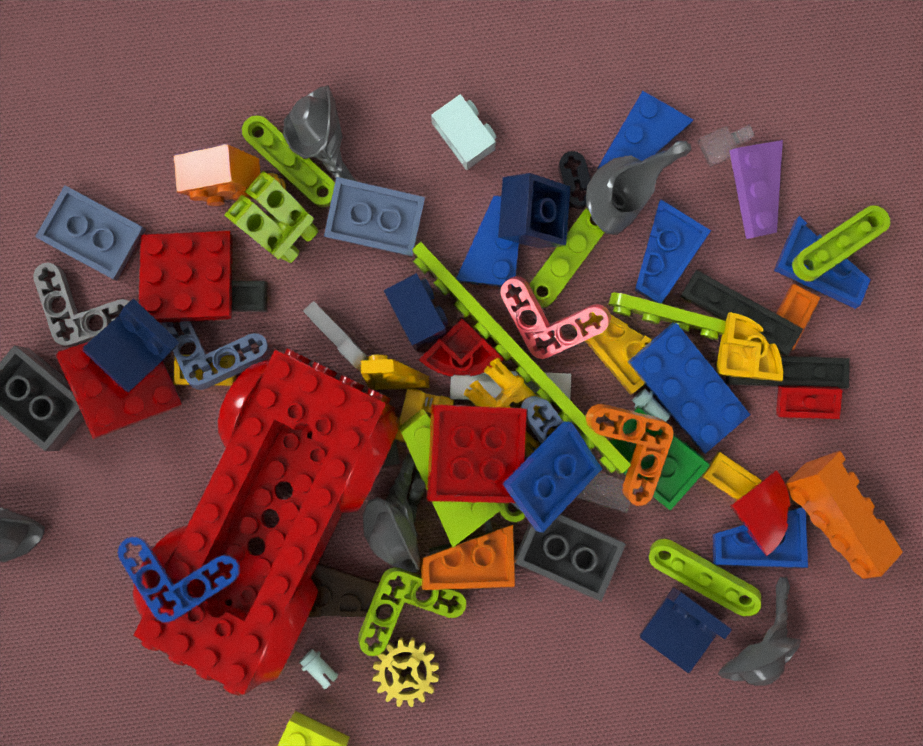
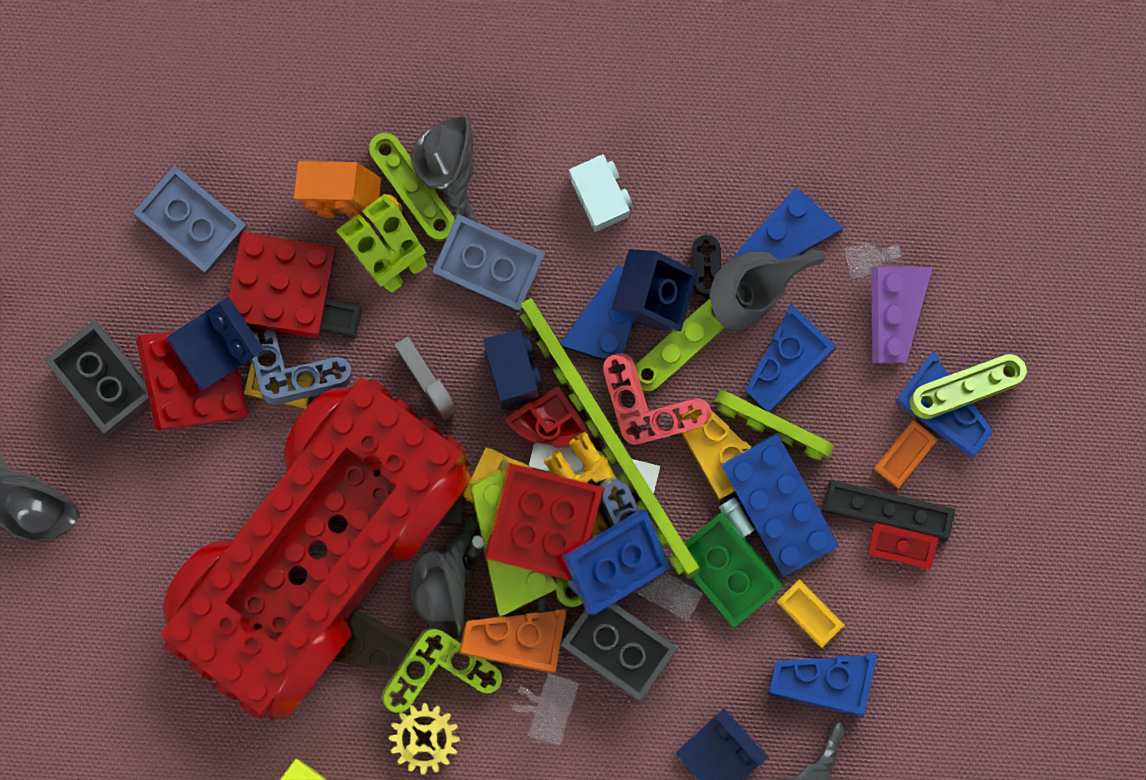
camera: 10 degrees right, 5 degrees down
(77, 321) = (157, 309): light grey beam -> none
(176, 592) = (216, 596): blue beam -> none
(317, 667) = (334, 718): light aqua pin -> none
(388, 374) = (473, 427): yellow wing -> none
(519, 623) = (552, 709): none -> clear brick
(645, 445) = (719, 551): orange beam -> none
(705, 577) = (755, 705): lime plate -> none
(721, 300) = (851, 438): pearl dark grey tile -> none
(747, 352) = (847, 479): yellow brick -> none
(765, 512) = (831, 647): red brick -> none
(844, 515) = (912, 668): orange wedge -> none

